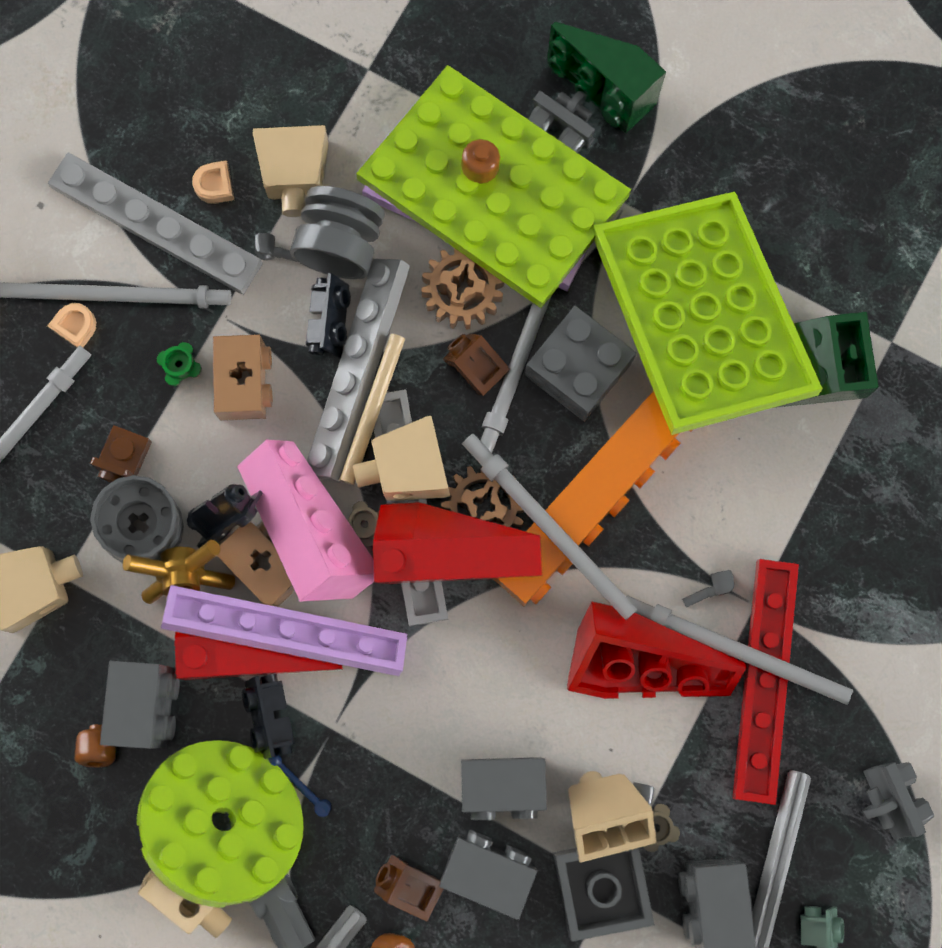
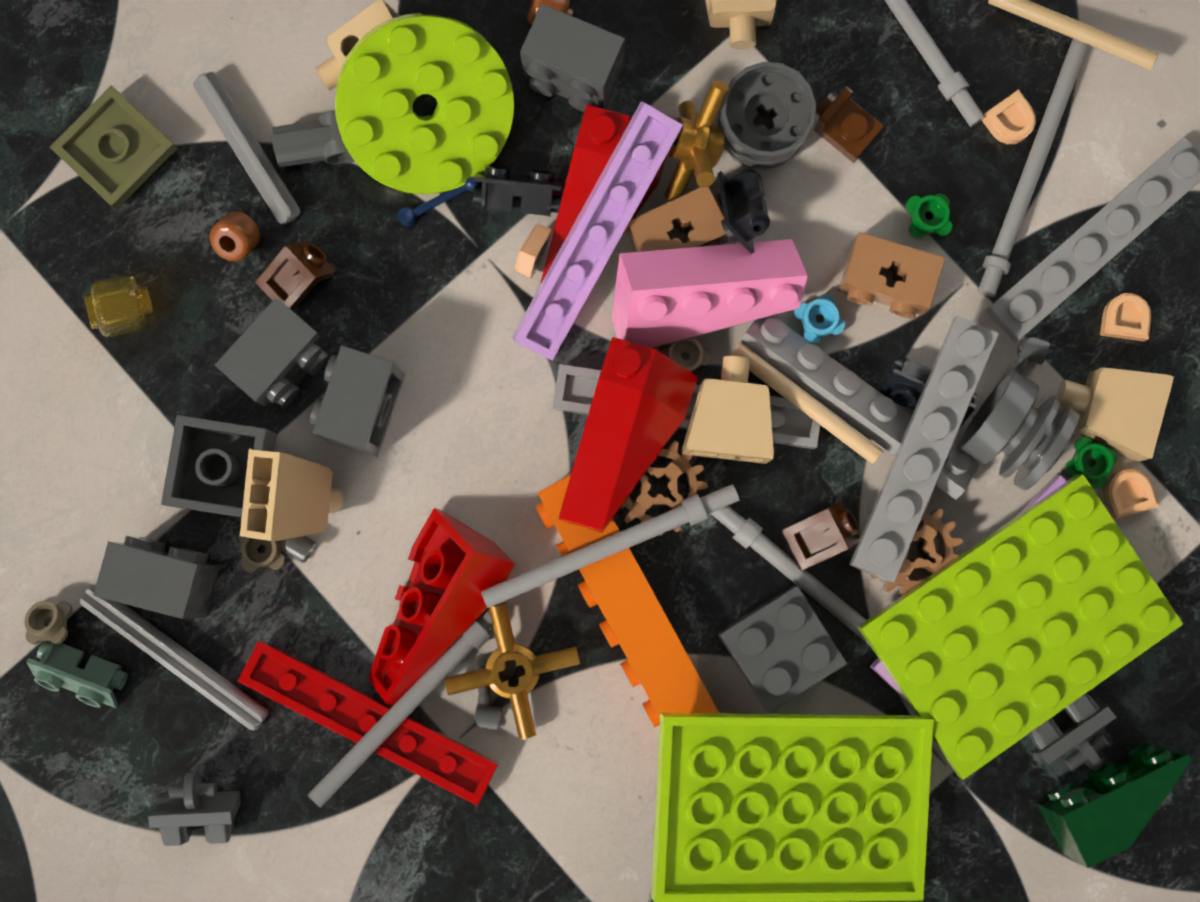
camera: 115 degrees right, 5 degrees up
(294, 413) = (825, 307): none -> medium azure plate
(317, 683) = (533, 251): none -> light nougat tile
(338, 164) = (1103, 459): none -> green plate
(357, 138) = (1129, 493): none -> light nougat tile
(378, 301) = (924, 449): none -> light grey plate
(480, 161) = (1050, 617): dark orange piece -> none
(677, 560) = (515, 690): none -> pearl gold bar

